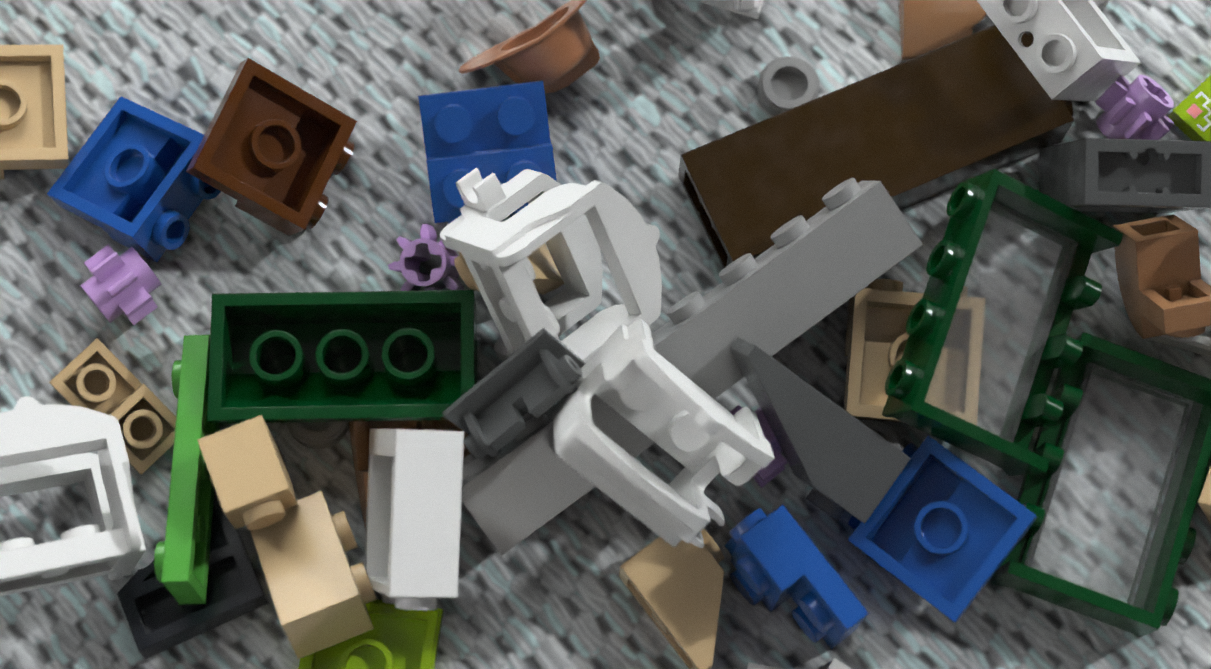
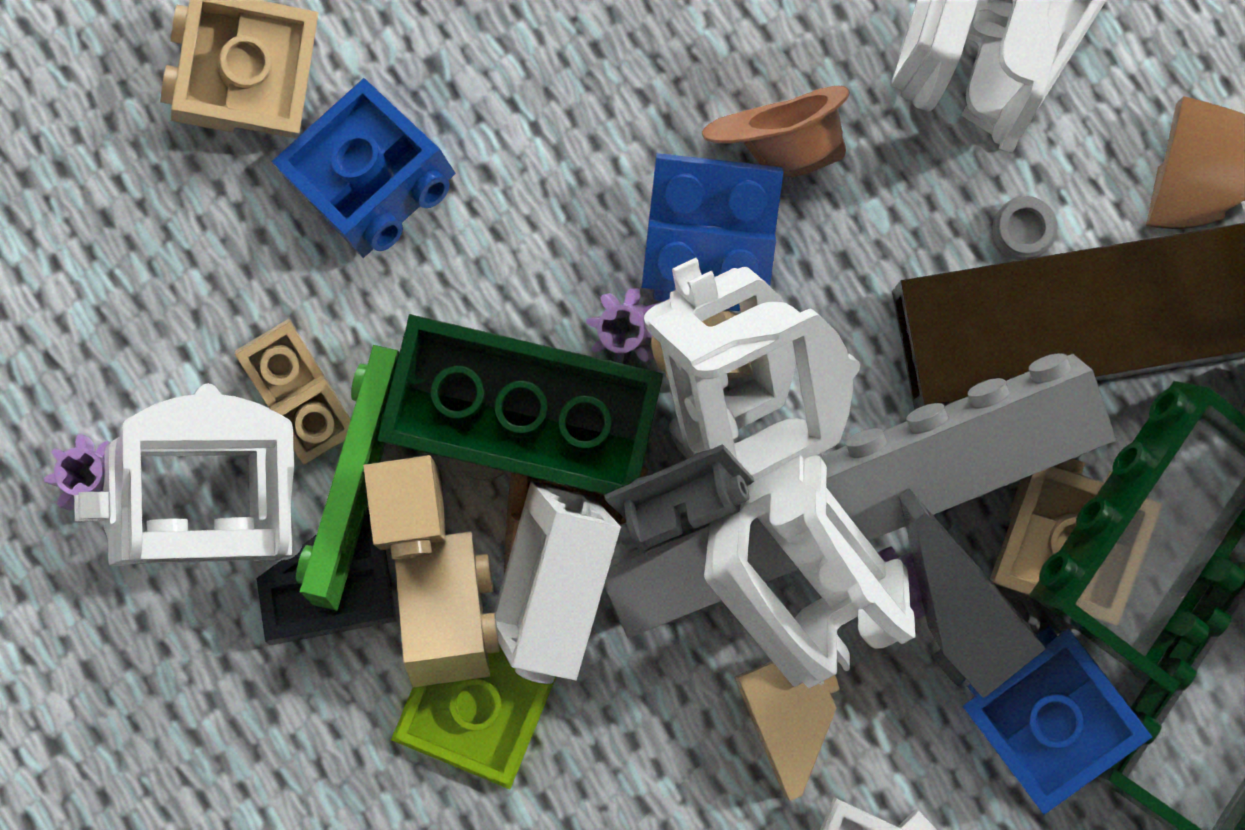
camera: 10 degrees right, 10 degrees up
(121, 284) = (323, 273): lavender gear -> none
(273, 149) = (501, 174): reddish brown plate -> none
(781, 562) = (891, 718): blue plate -> none

